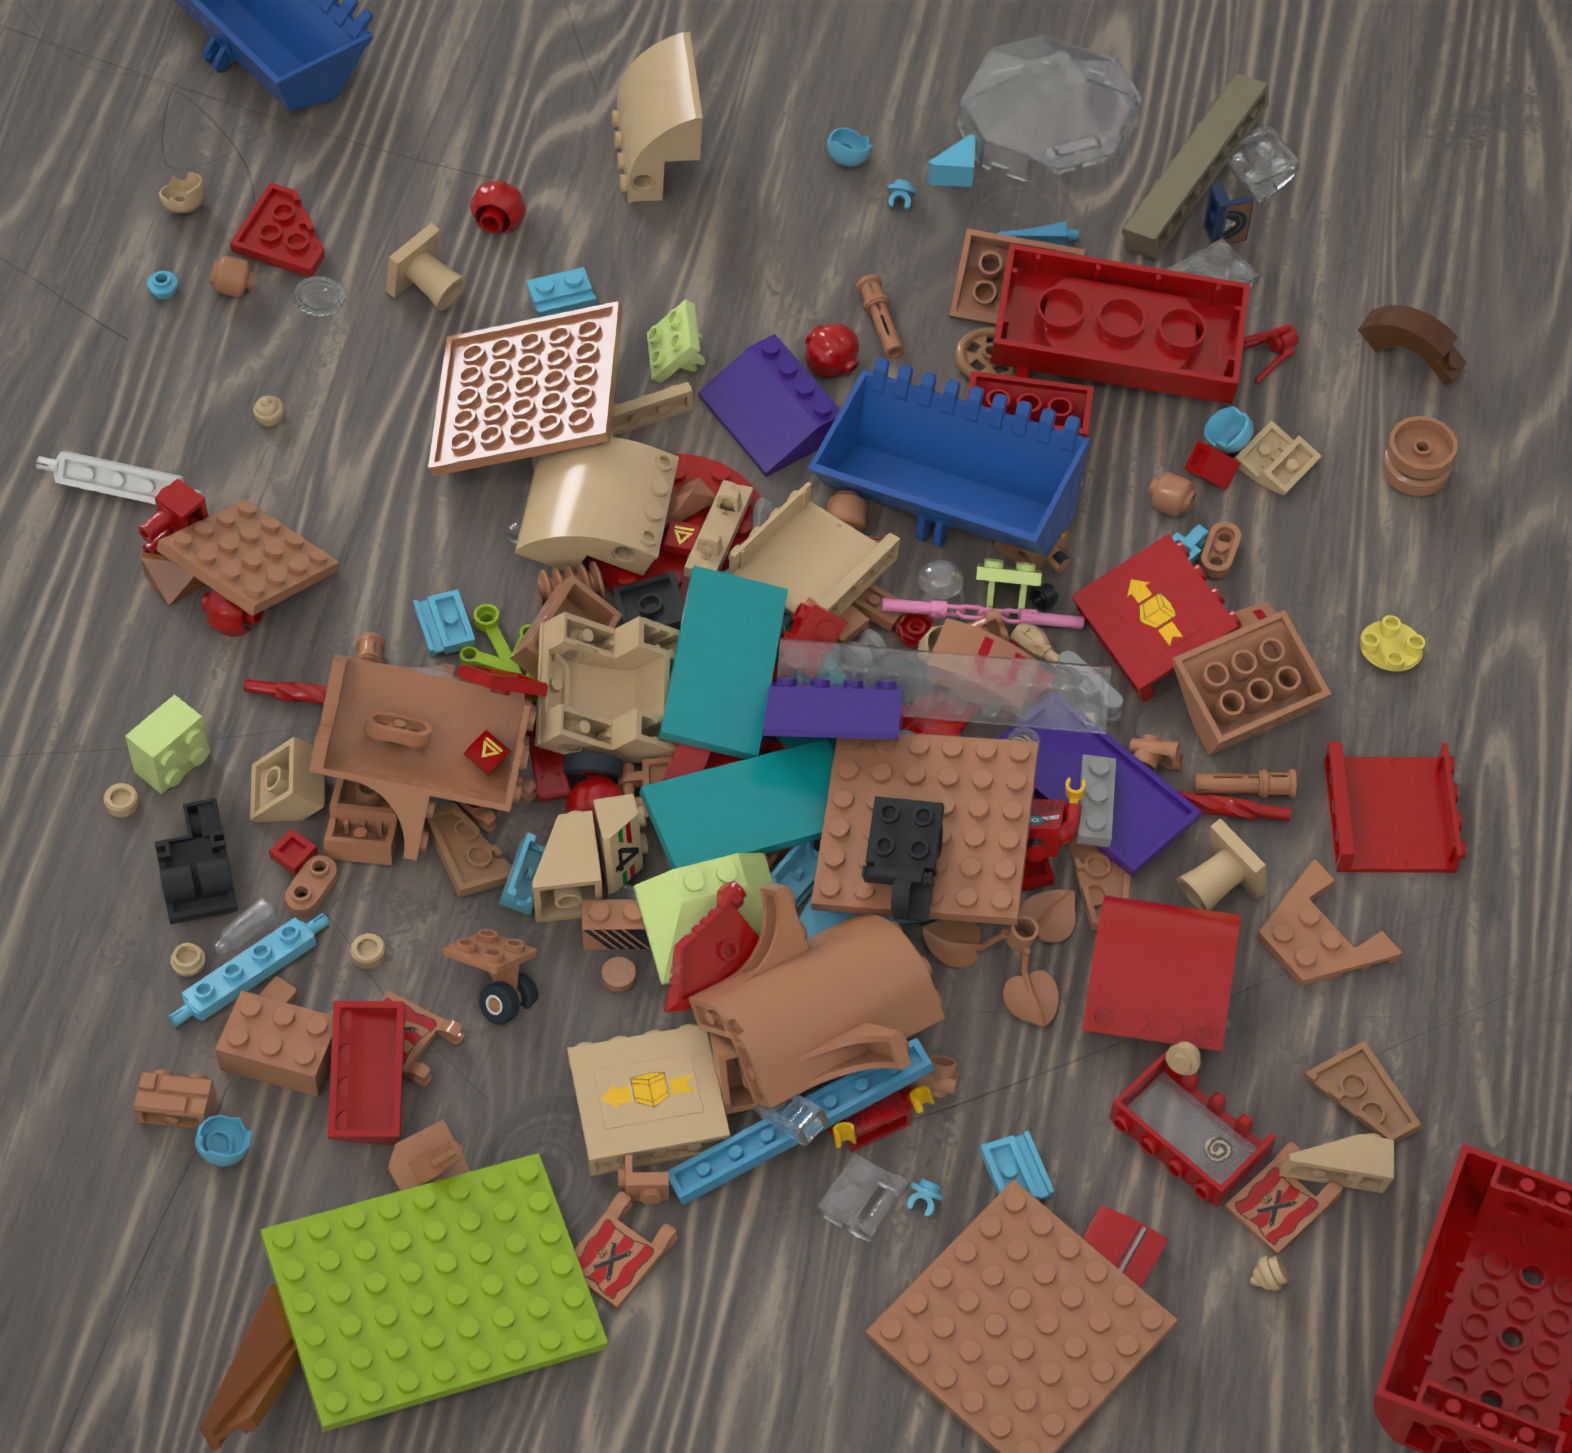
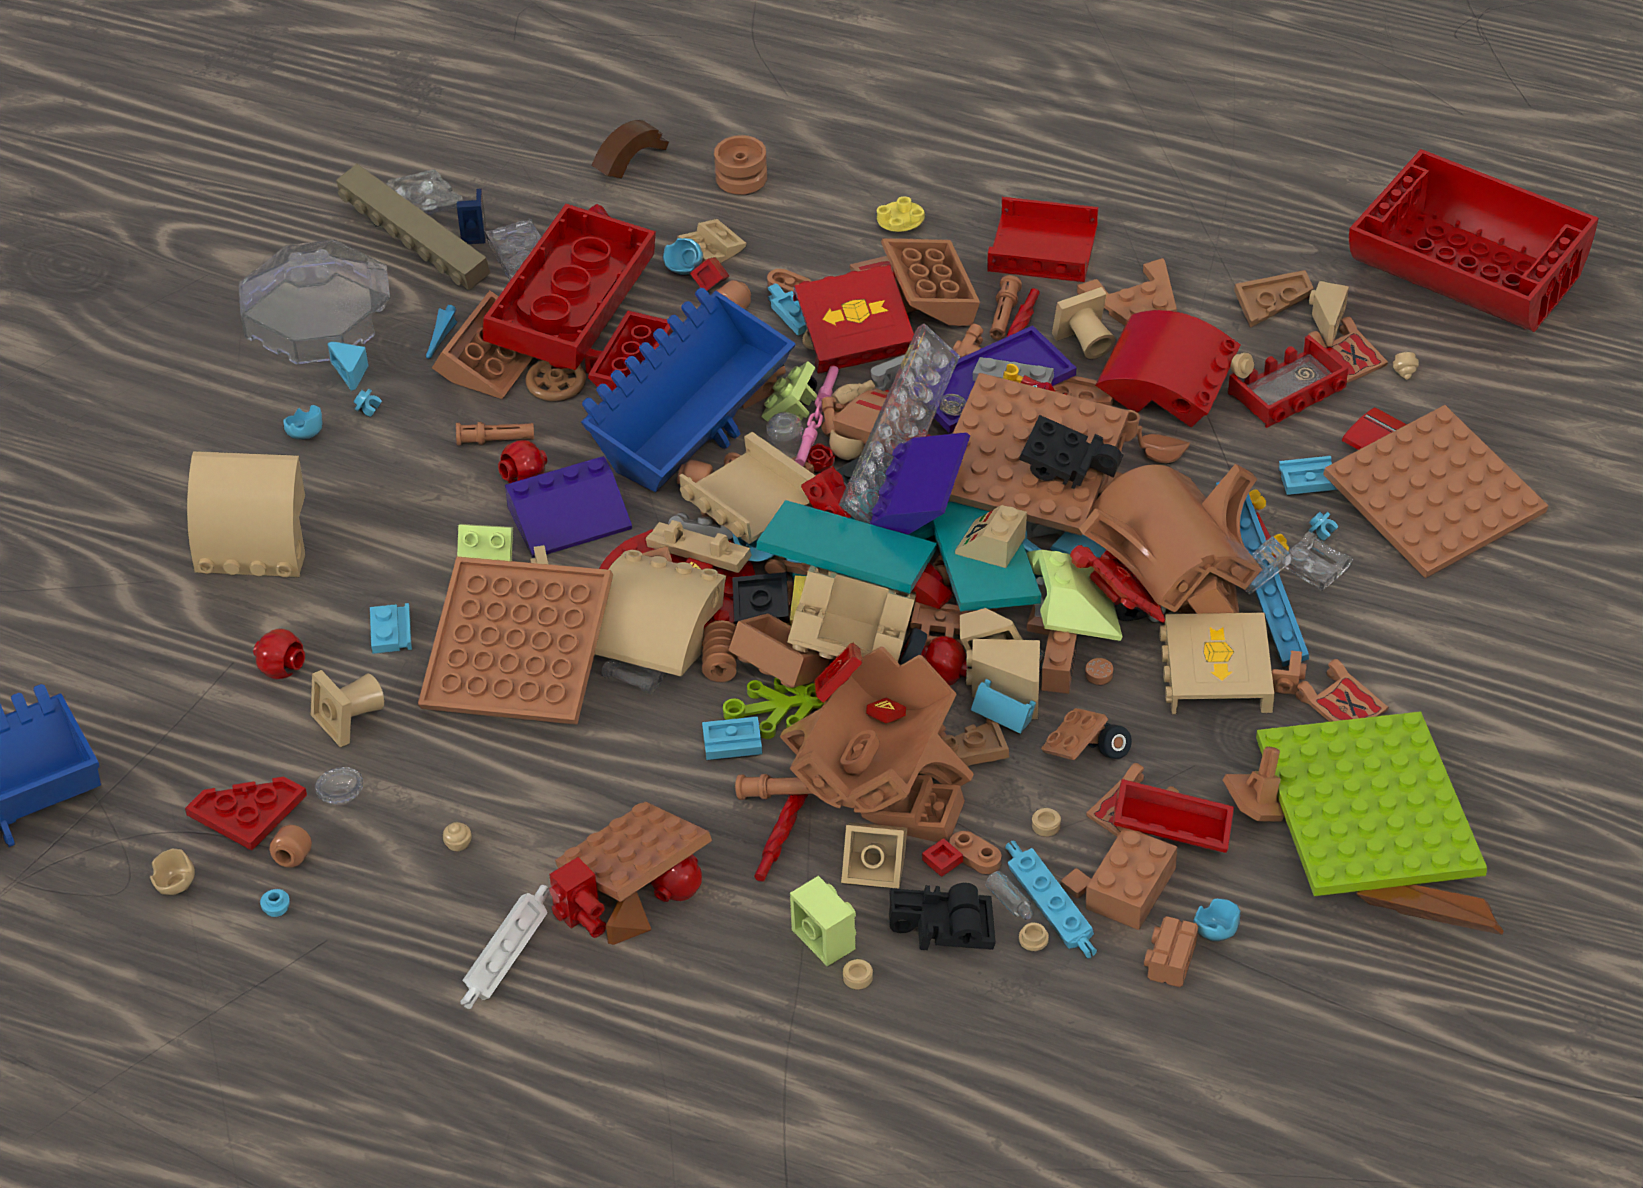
camera: 75 degrees left, 10 degrees down
(761, 808) = (995, 536): none -> tan slope

